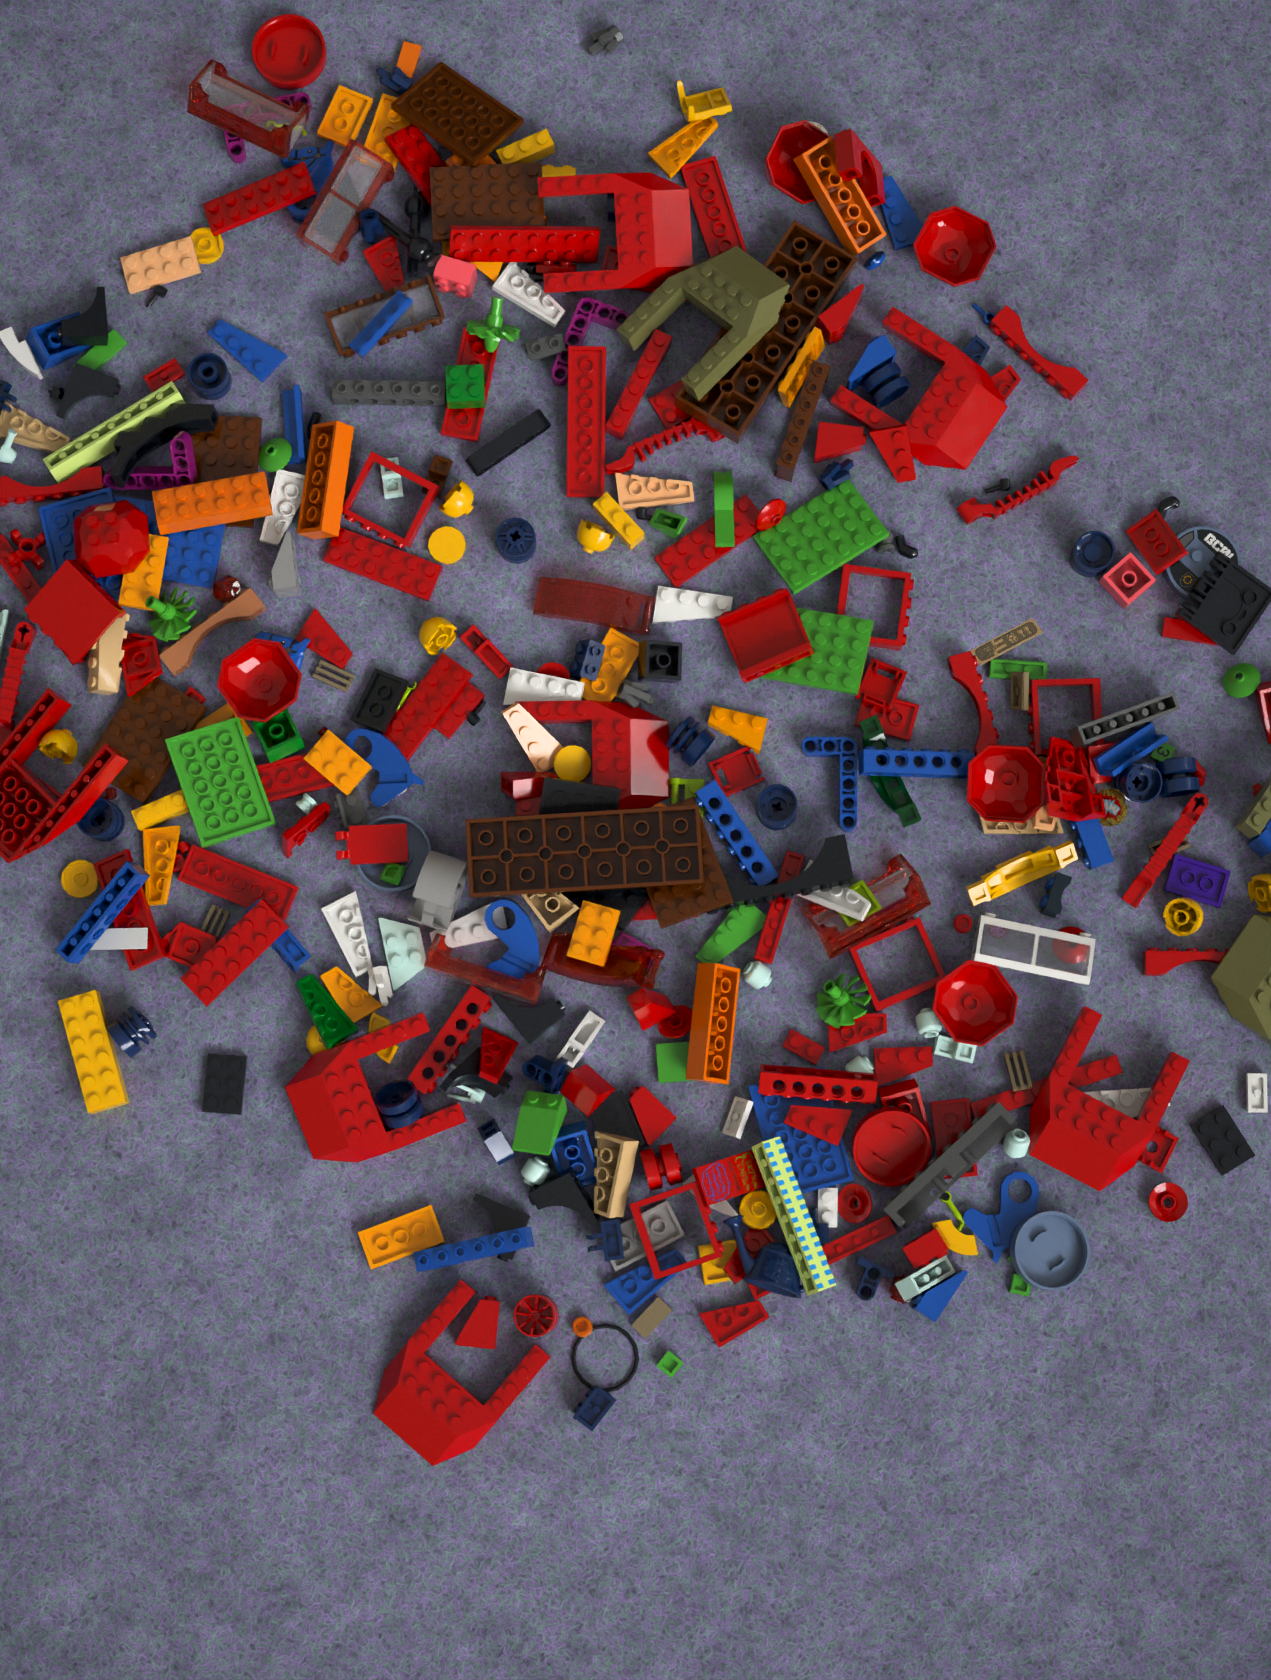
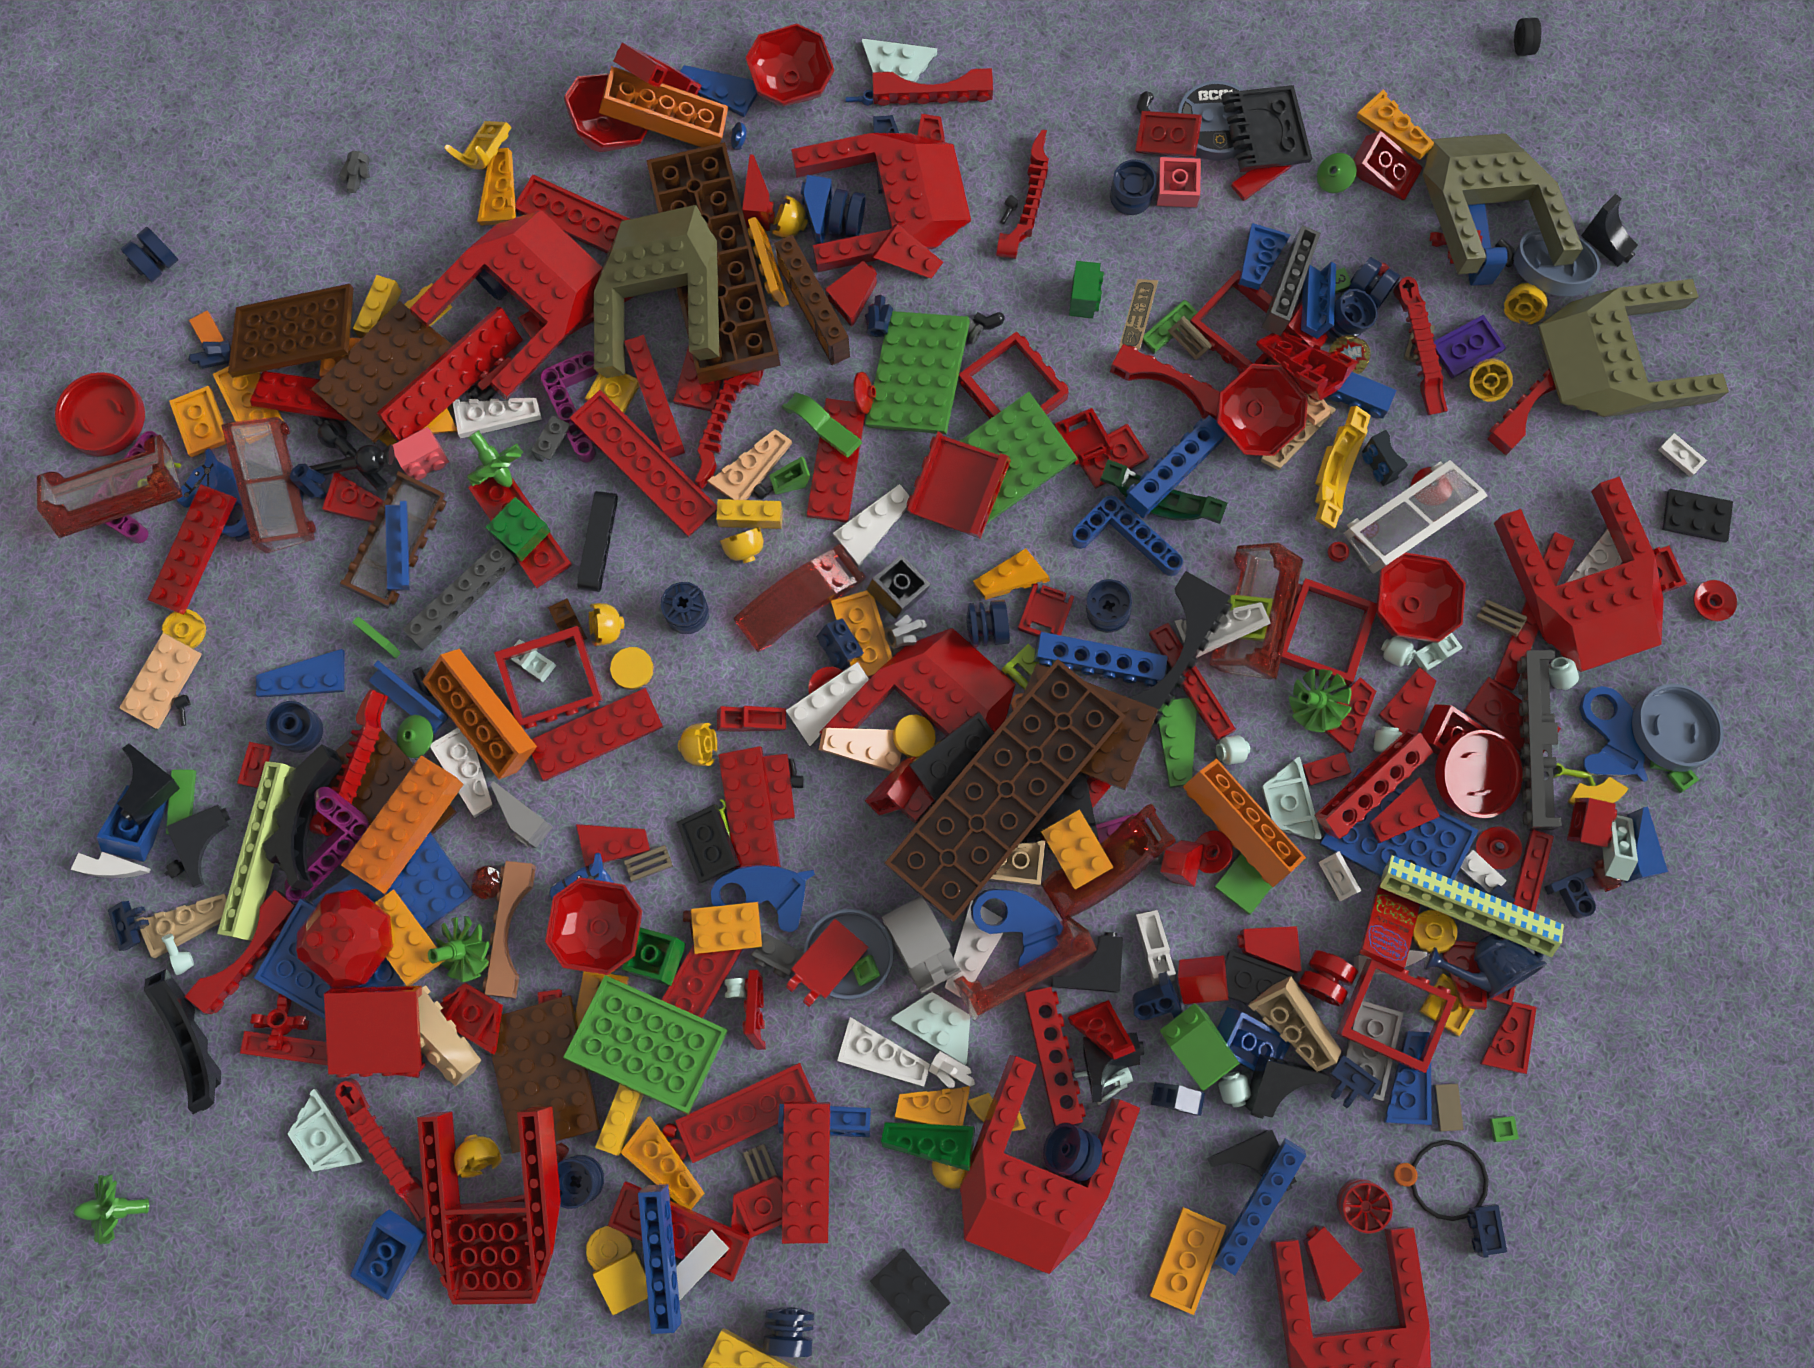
camera: 45 degrees left, 5 degrees down
(68, 904) = (622, 1282): none -> yellow tile
(258, 416) = (370, 718): none -> red piece
(312, 365) = (376, 637): none -> bright green tile
(618, 355) = (618, 389): none -> yellow tile
(757, 1043) = (1290, 802): none -> light aqua wing
(847, 351) = (790, 218): none -> yellow cylinder
(985, 590) = (1086, 289): none -> green brick
(1036, 312) = (902, 59): none -> light aqua wing
(1127, 683) = (1260, 254): none -> blue wing

